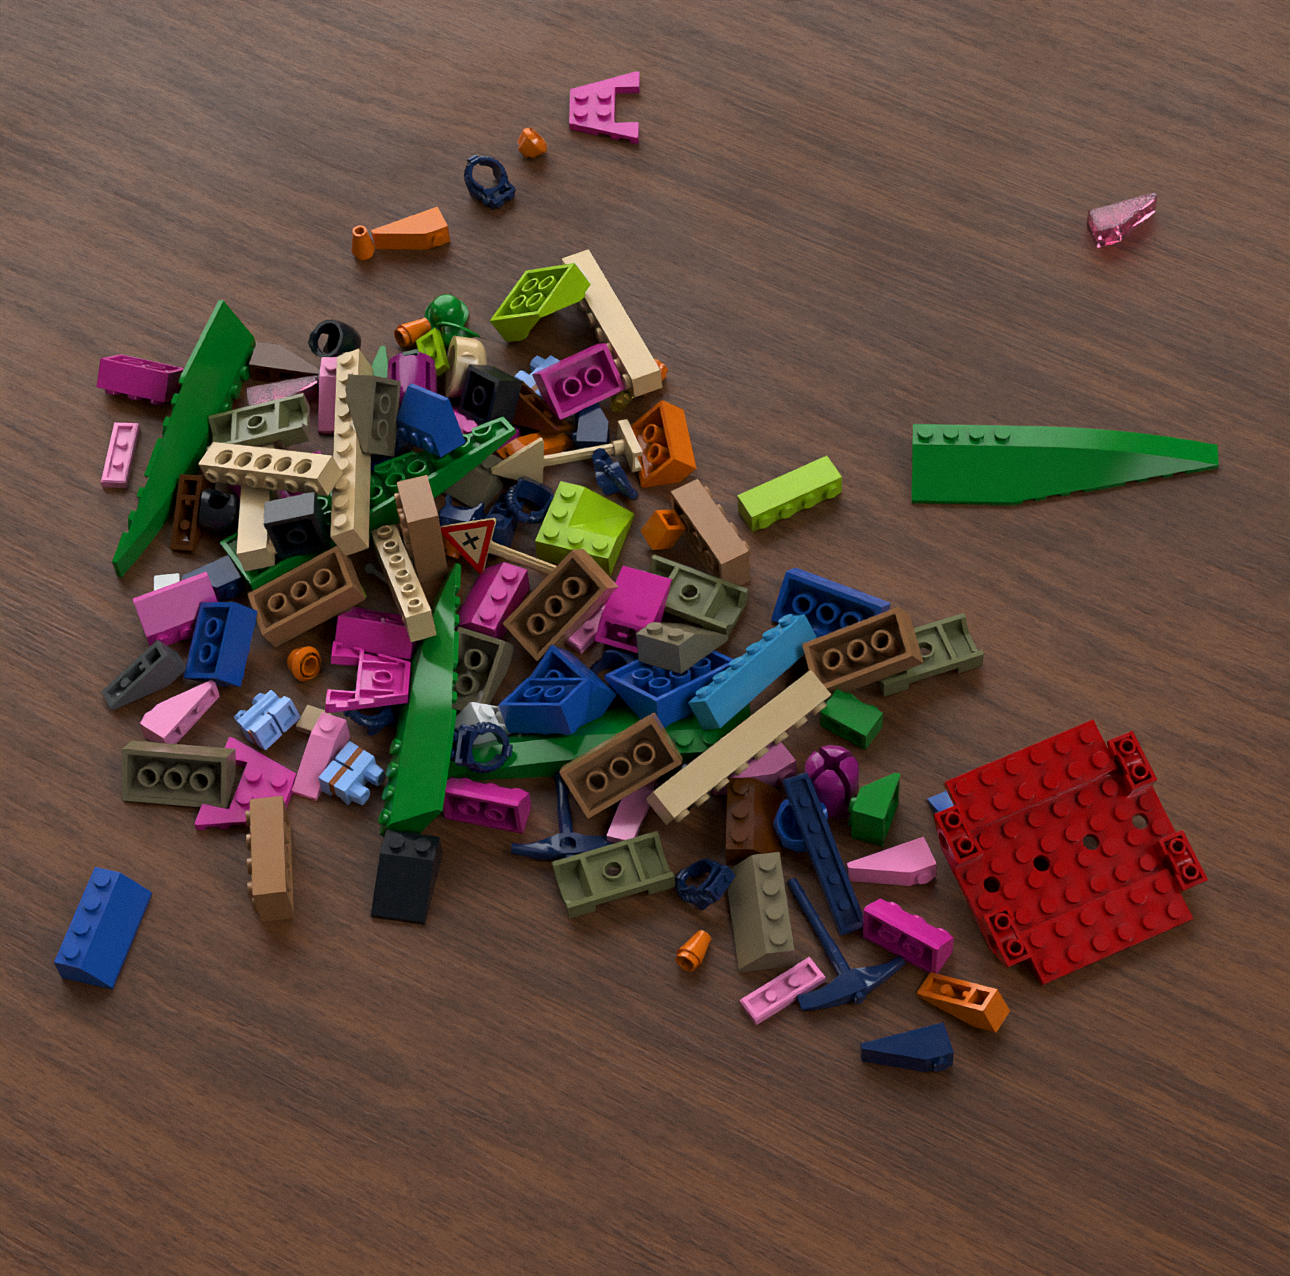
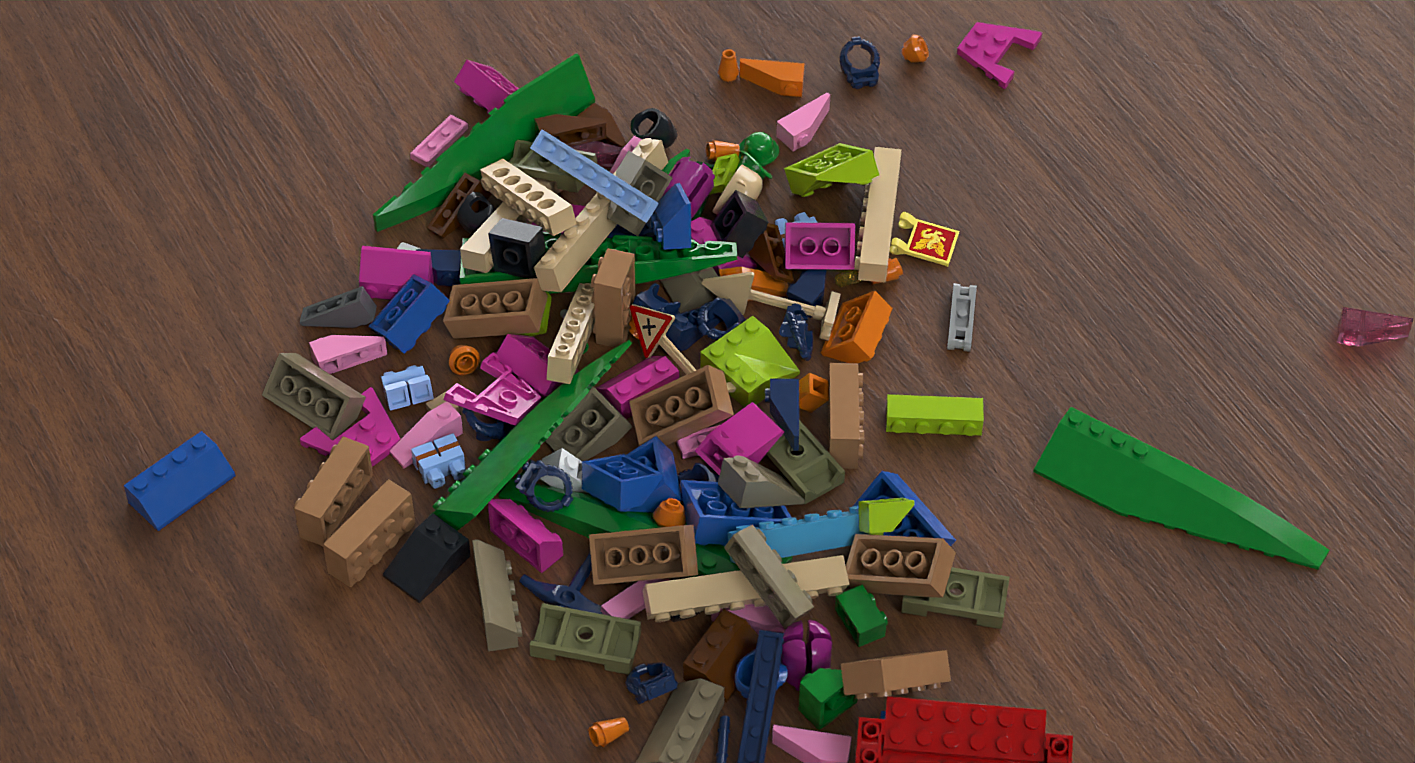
camera: 25 degrees right, 5 degrees down
(254, 383) = (572, 129): none -> reddish brown slope
(325, 415) = (594, 176): none -> light blue plate
(337, 881) = (369, 533): none -> medium nougat brick
(471, 272) = (801, 125): none -> bright pink slope
(500, 880) = (495, 597): none -> dark tan slope
(615, 714) = (670, 513): none -> orange cone
(656, 556) = (784, 407): none -> dark blue slope
(668, 327) = (926, 240): none -> flag
(750, 386) = (961, 317): none -> light grey plate
(762, 725) = (768, 576): none -> dark tan slope
(817, 612) = (882, 514): none -> lime slope
(932, 756) = (896, 674): none -> medium nougat brick

